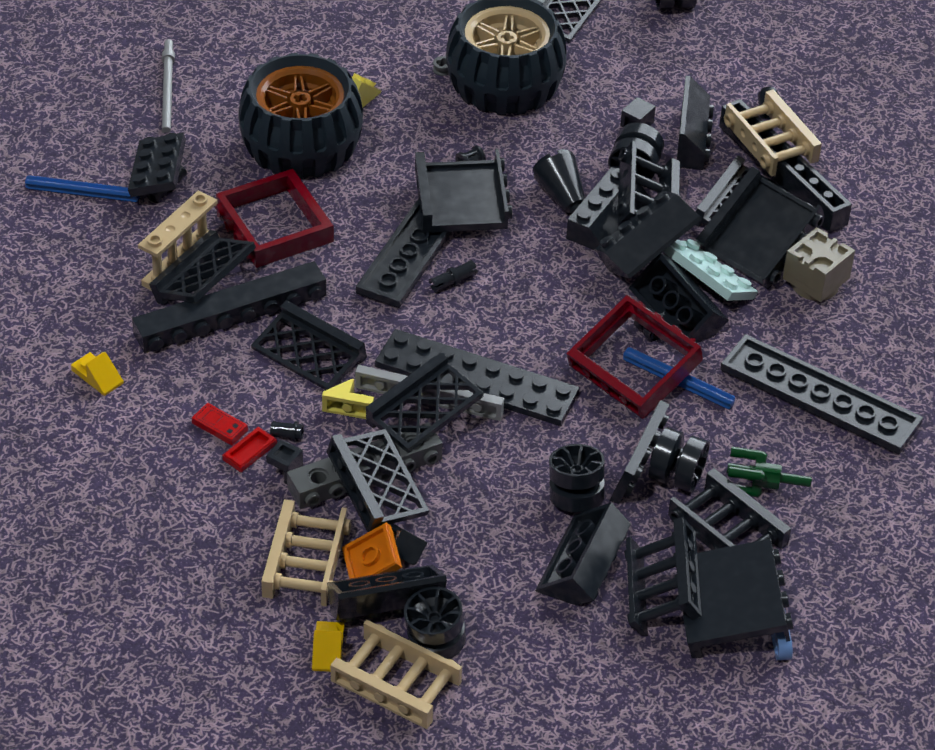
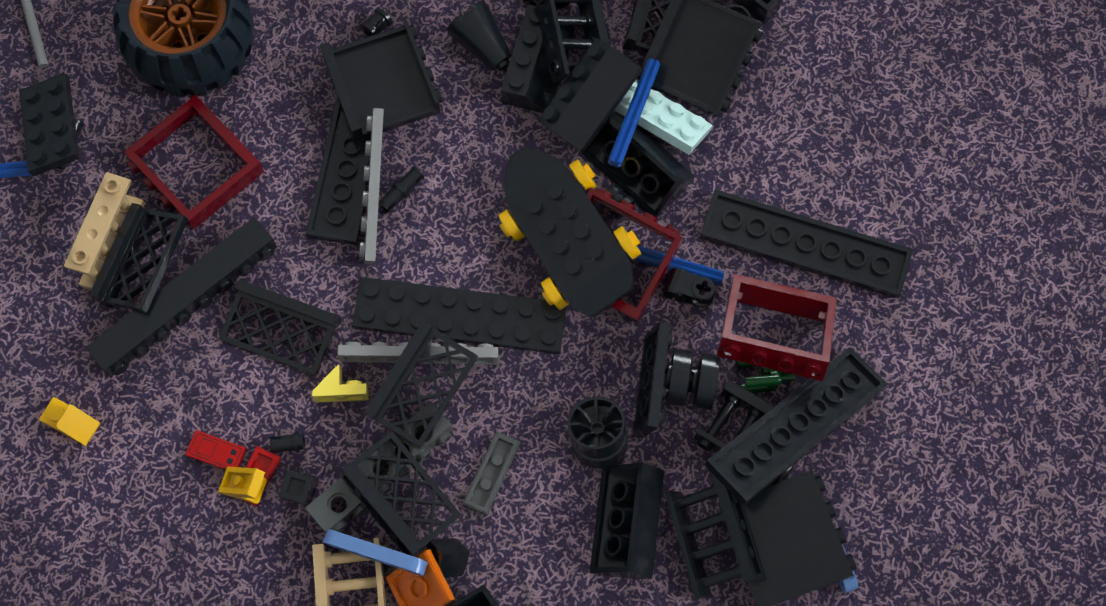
camera: 15 degrees left, 25 degrees up
(238, 444) = (243, 484): none -> yellow slope
(340, 511) = (375, 552): none -> medium blue beam
(430, 255) = (371, 197): none -> light grey plate
(467, 496) = (491, 473): none -> dark grey tile
(594, 323) = (567, 232): none -> black piece
(684, 253) = (633, 113): none -> blue axle
(696, 399) = (687, 286): none -> black piece
(767, 508) = (795, 426): none -> black plate
(768, 450) = (785, 300): none -> dark red window
(818, 266) = (768, 84): dark tan piece -> none

